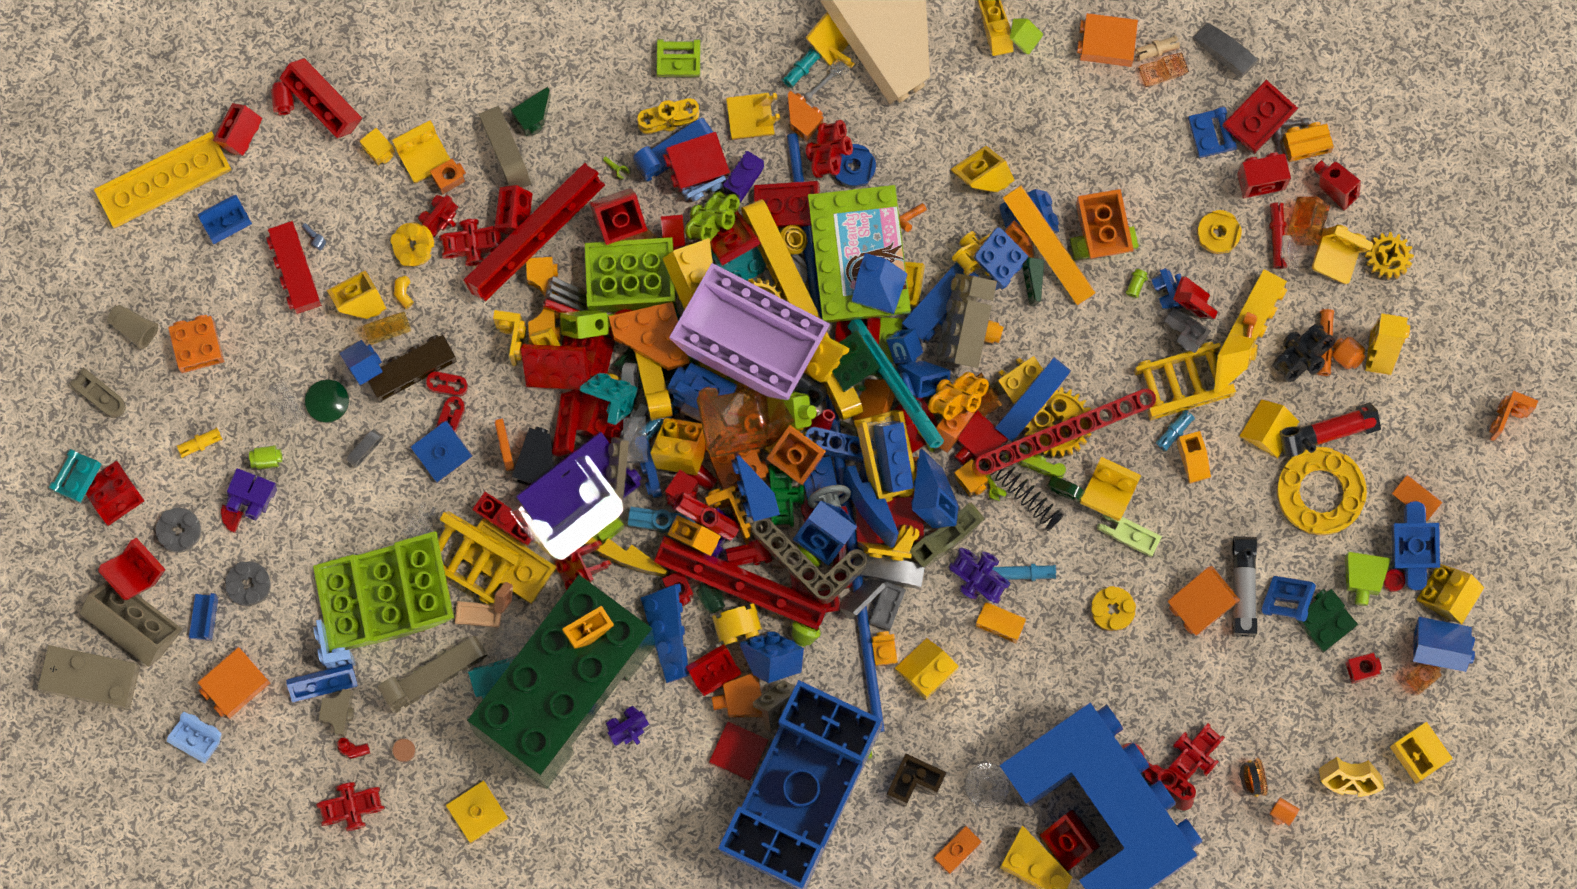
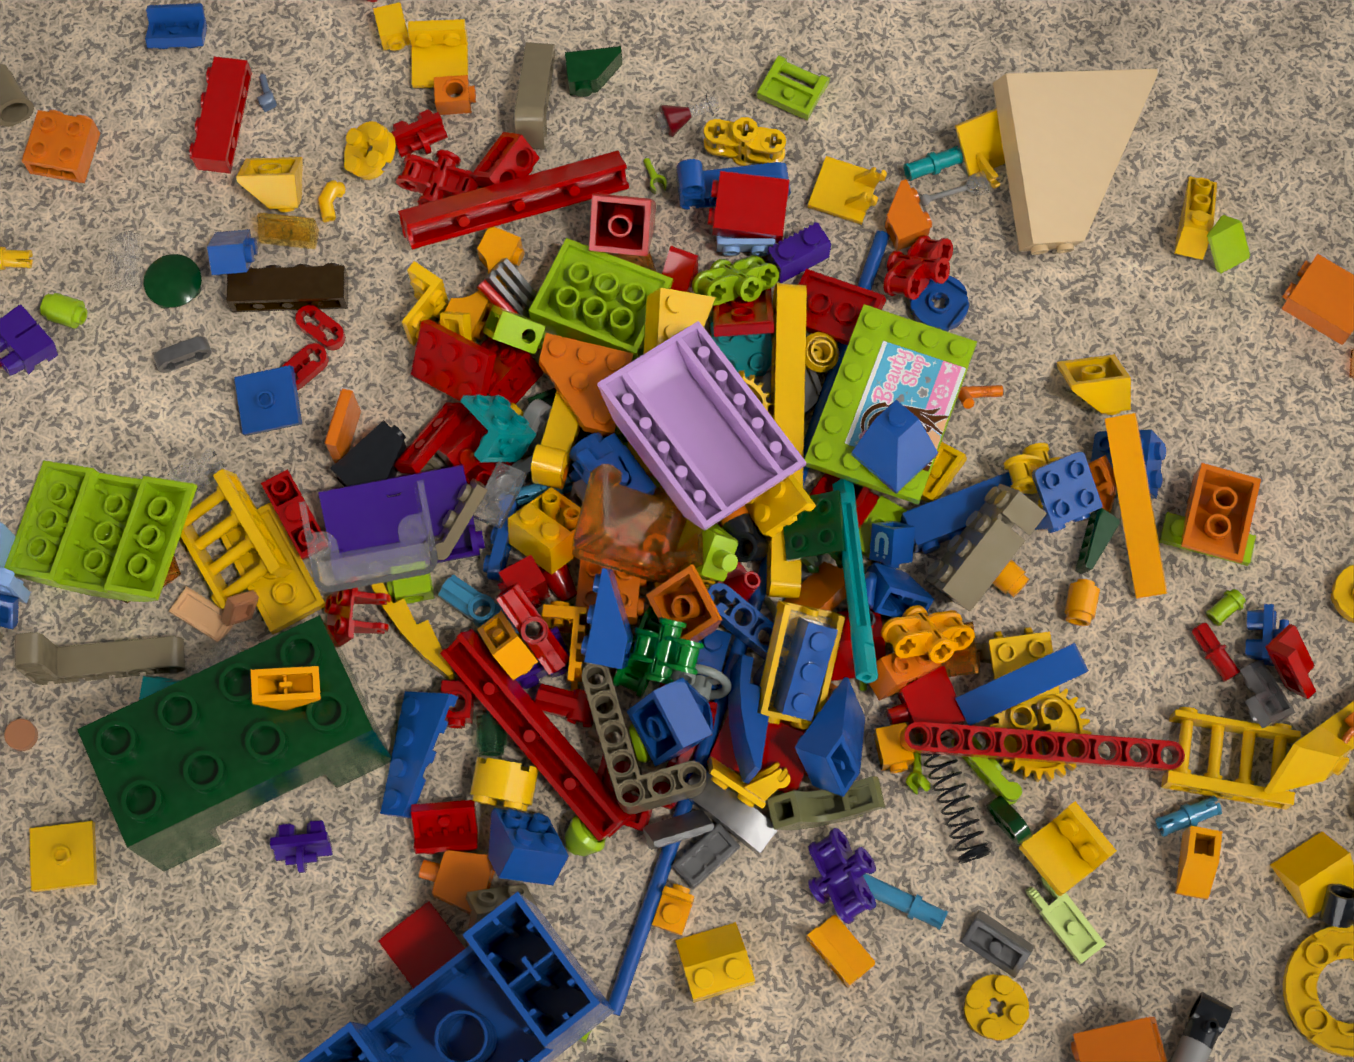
camera: 30 degrees right, 5 degrees down
(608, 120) = (673, 118): none -> piece
(799, 488) = (666, 651): none -> green axle
(1044, 325) = (1082, 602): none -> light orange brick
(1095, 569) = (997, 944): none -> flat silver slope
(1143, 316) = (1215, 651): none -> red axle

